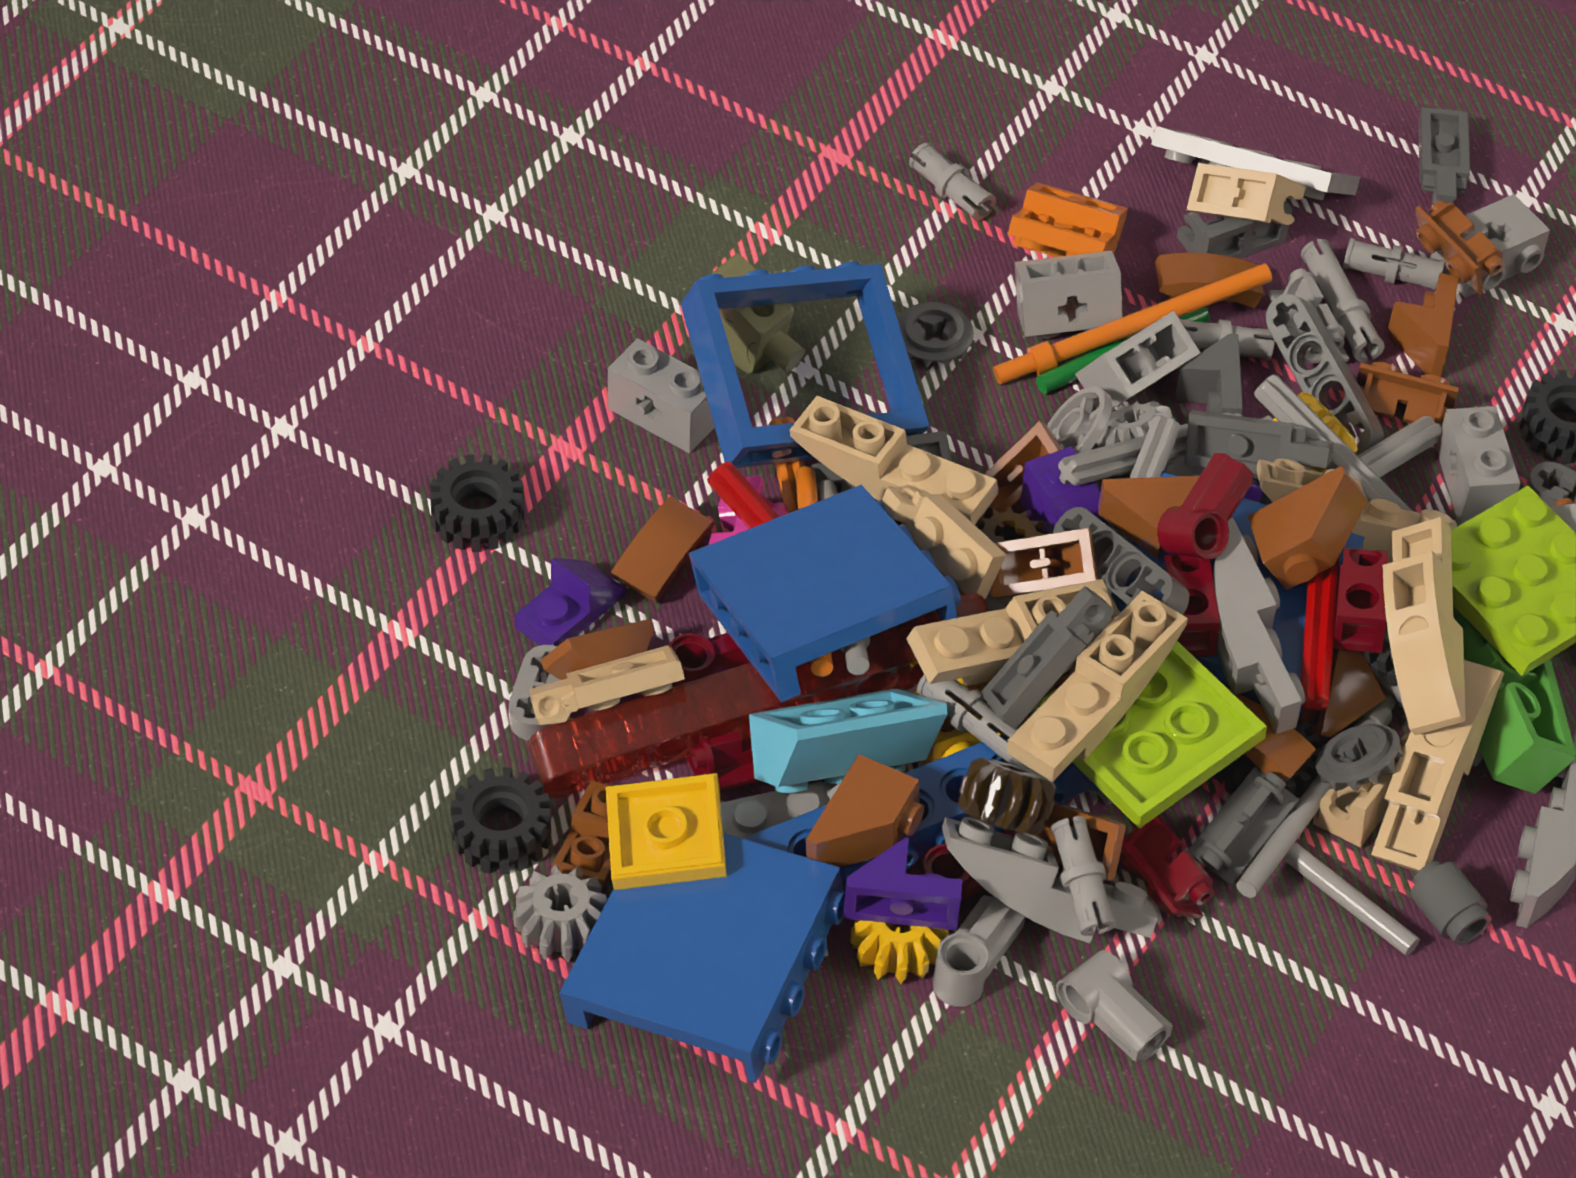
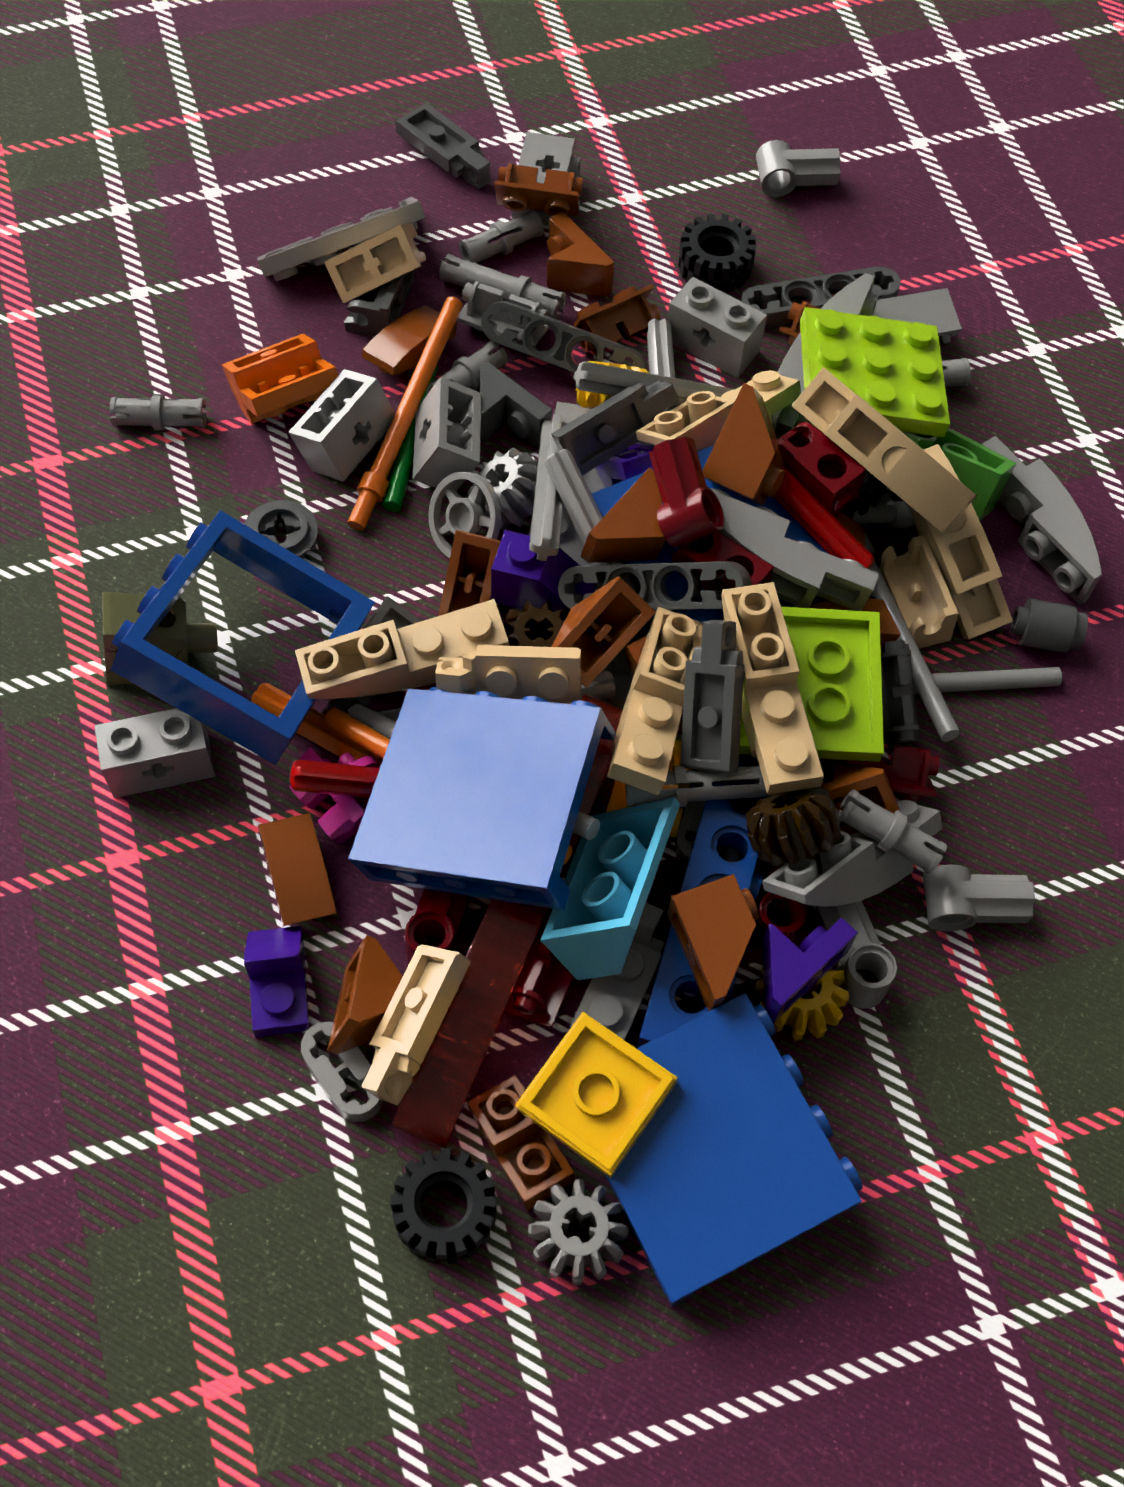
camera: 50 degrees left, 10 degrees up
(482, 524) = (98, 944): black tyre -> none
(1343, 758) = (915, 560): dark grey gear -> none

